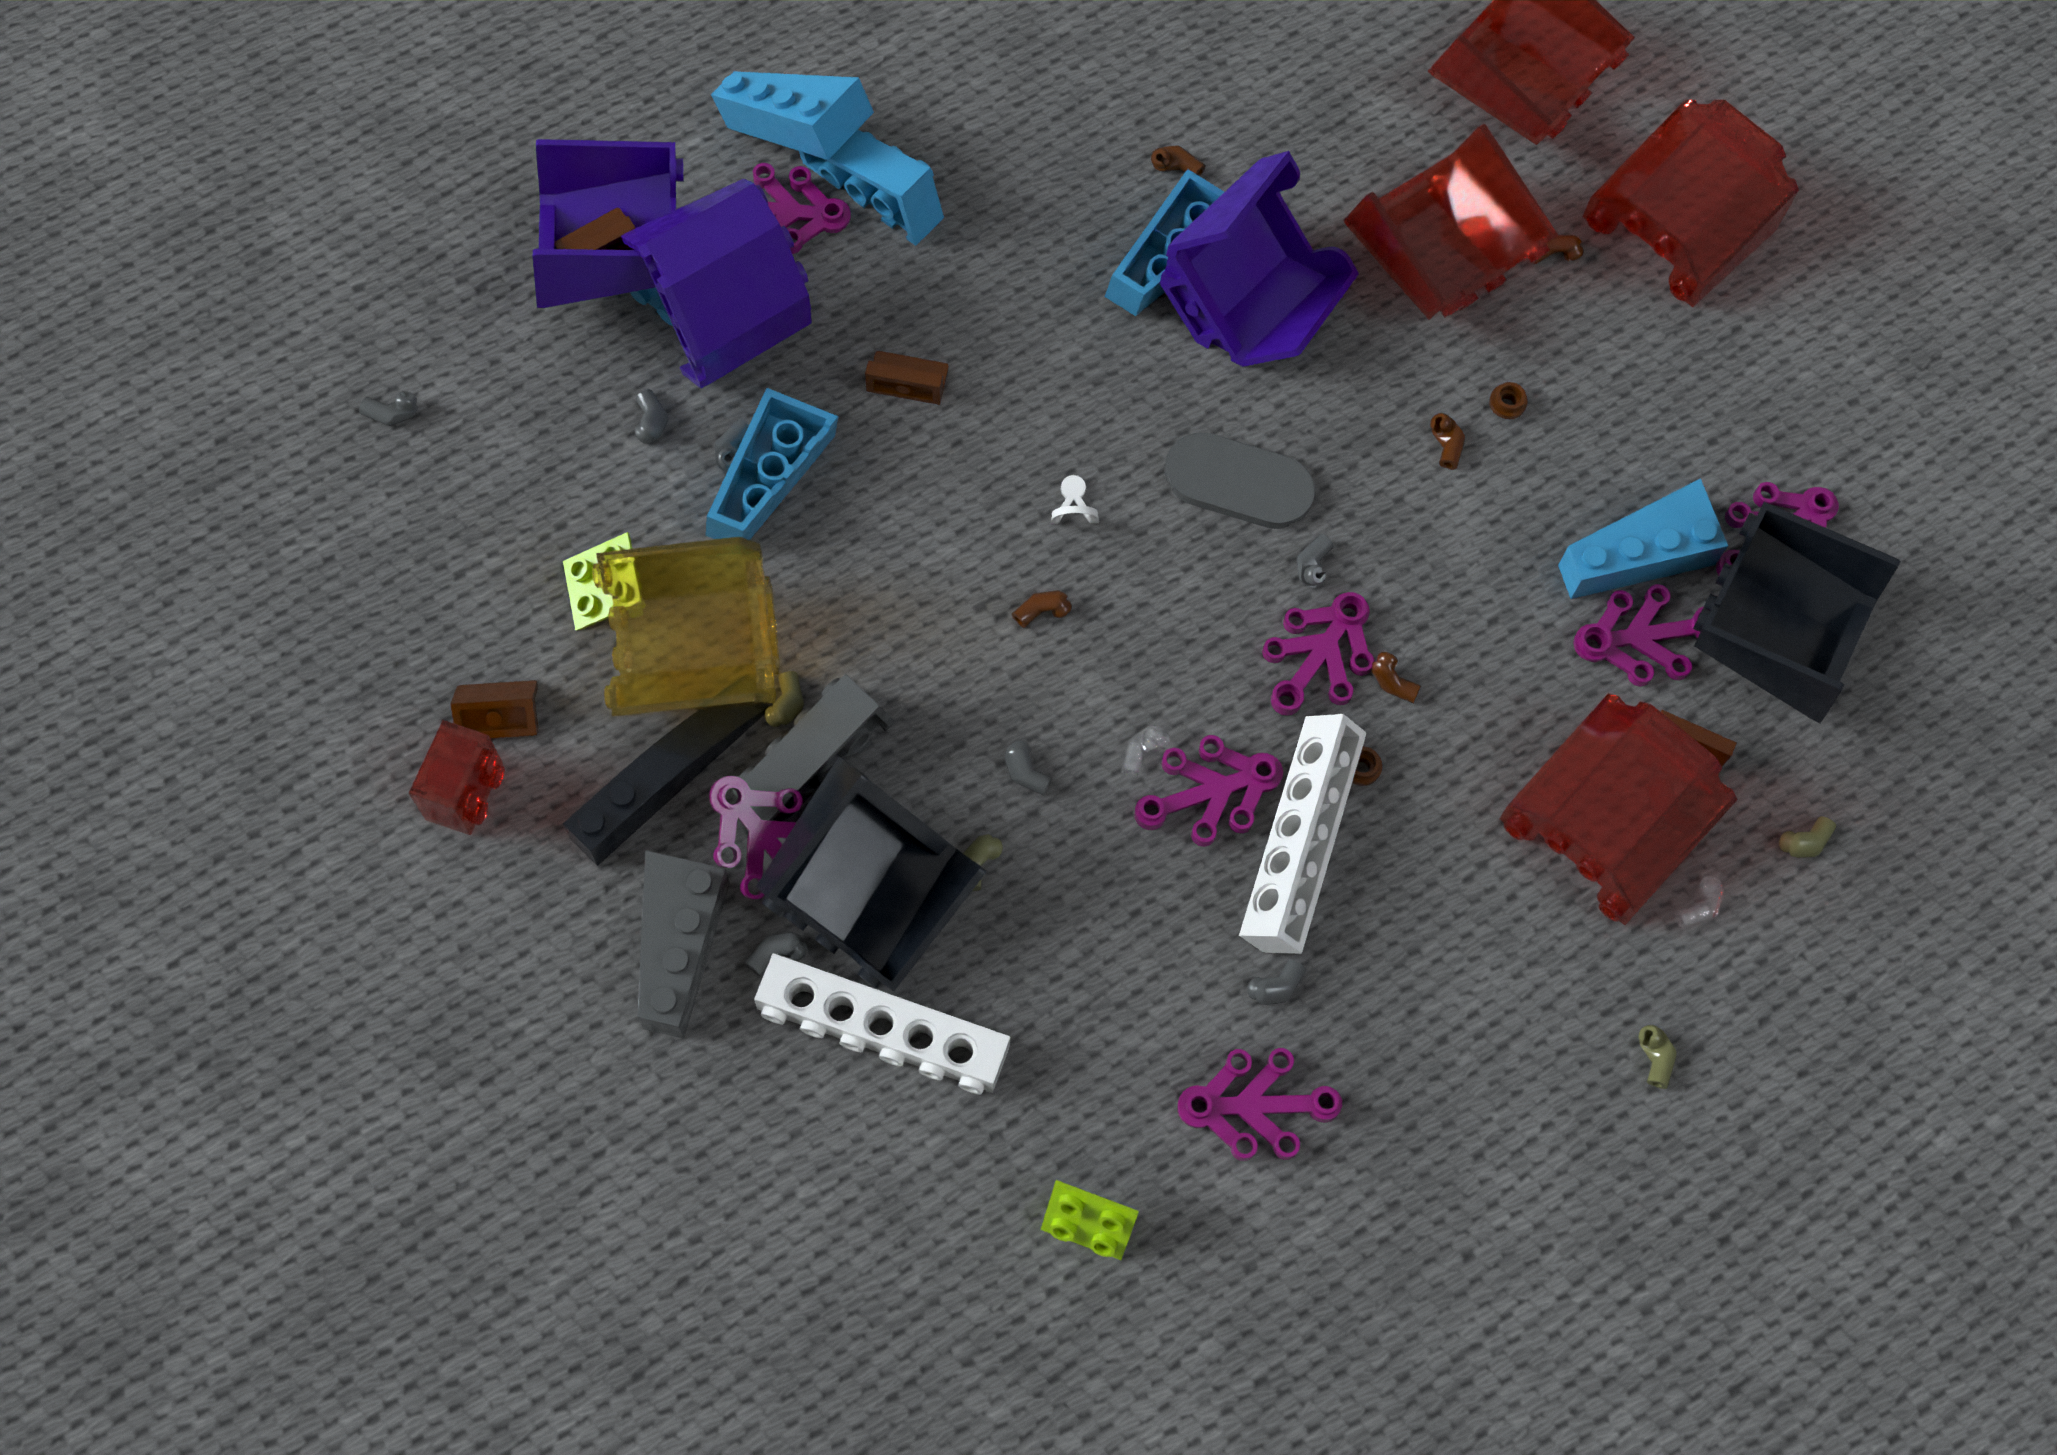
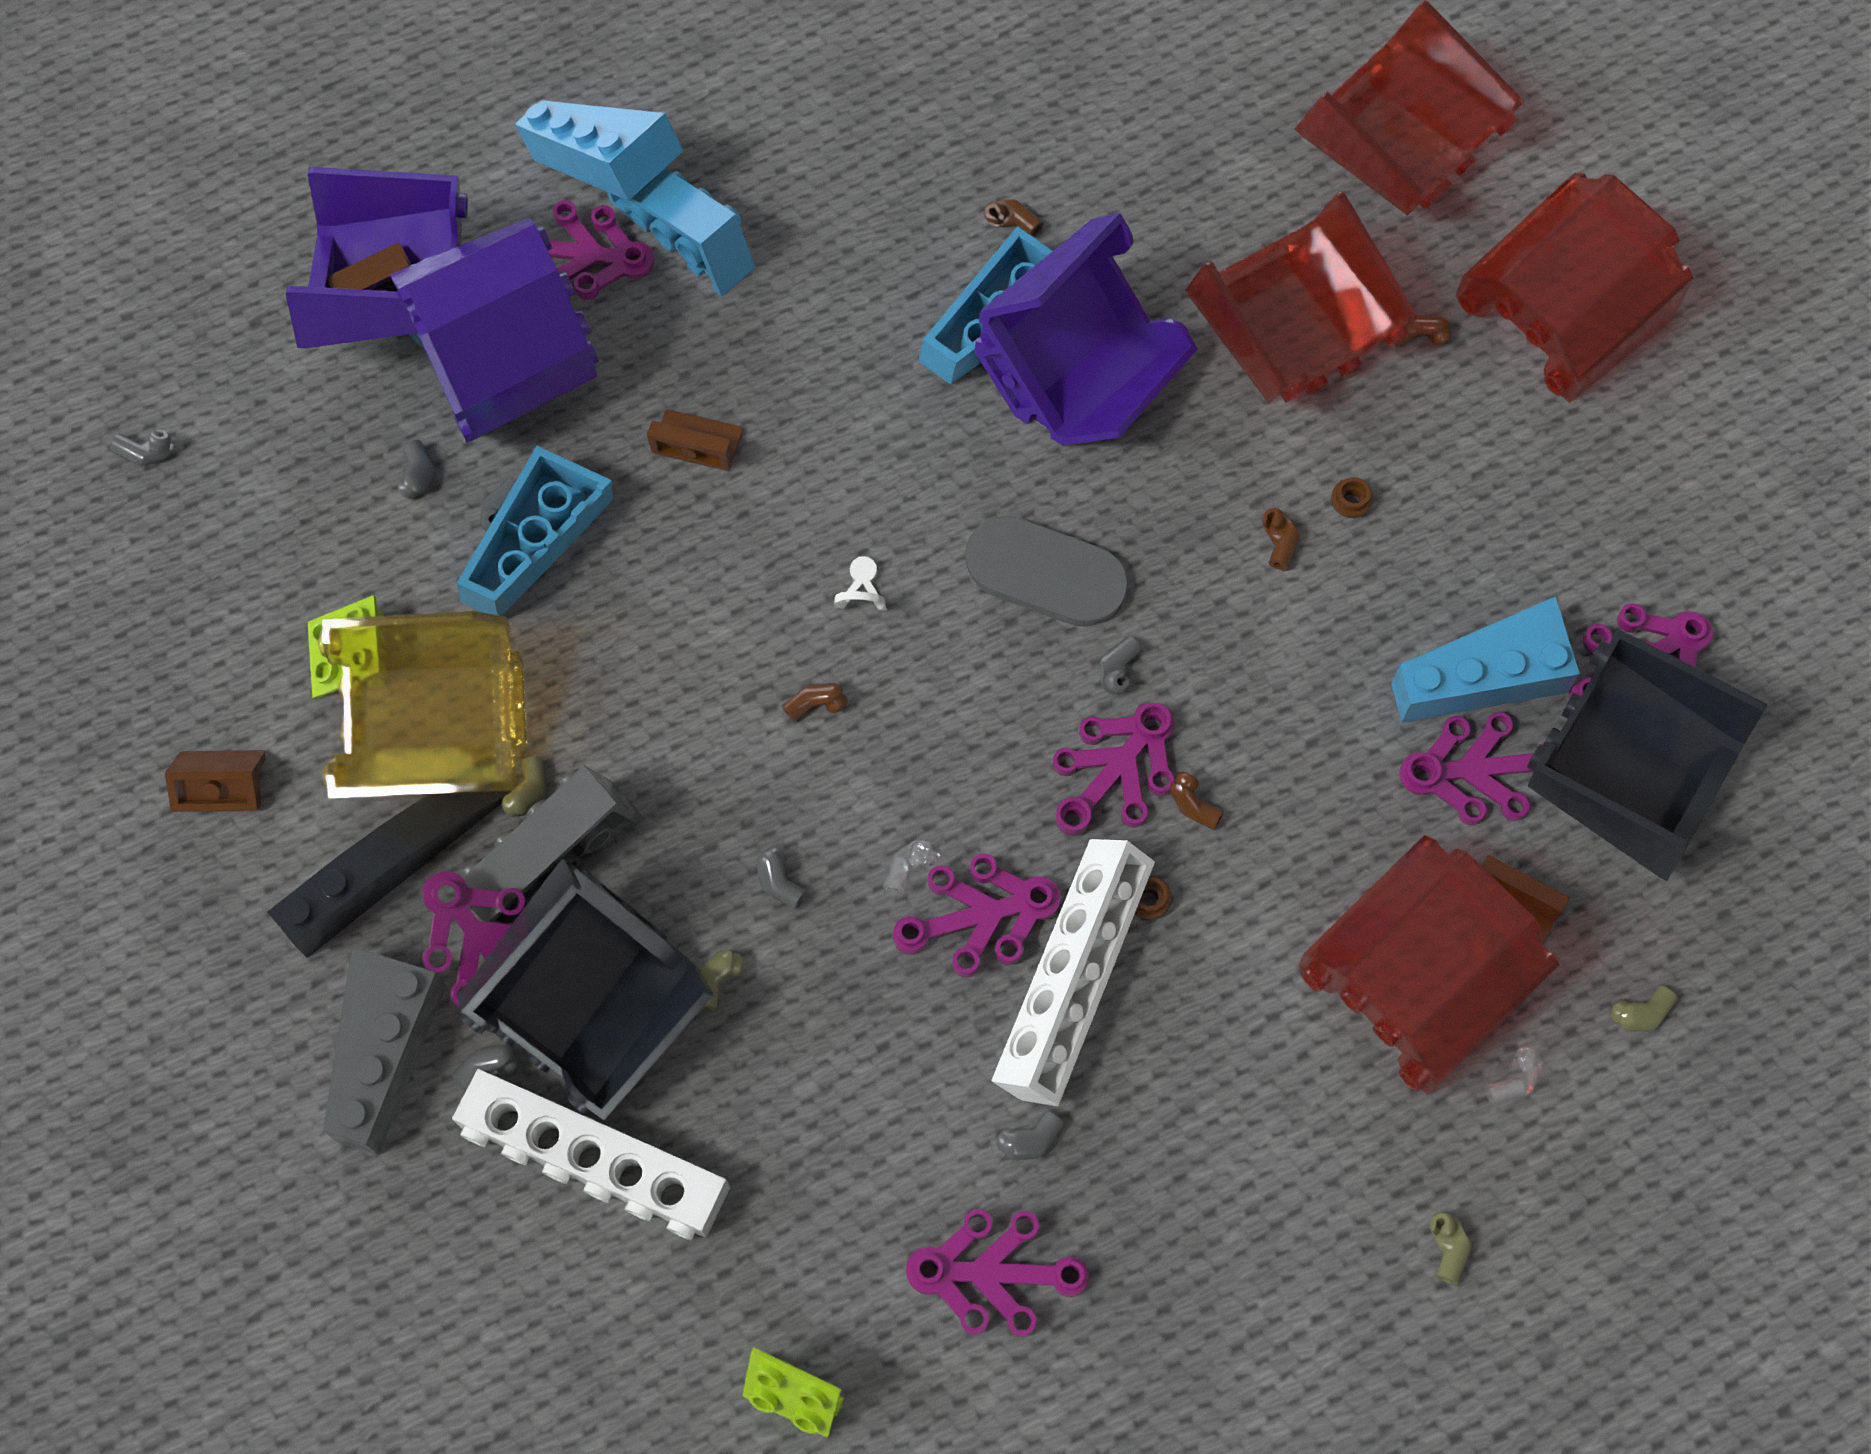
camera: 10 degrees right, 0 degrees up
(457, 778) = (162, 854): clear red brick -> none

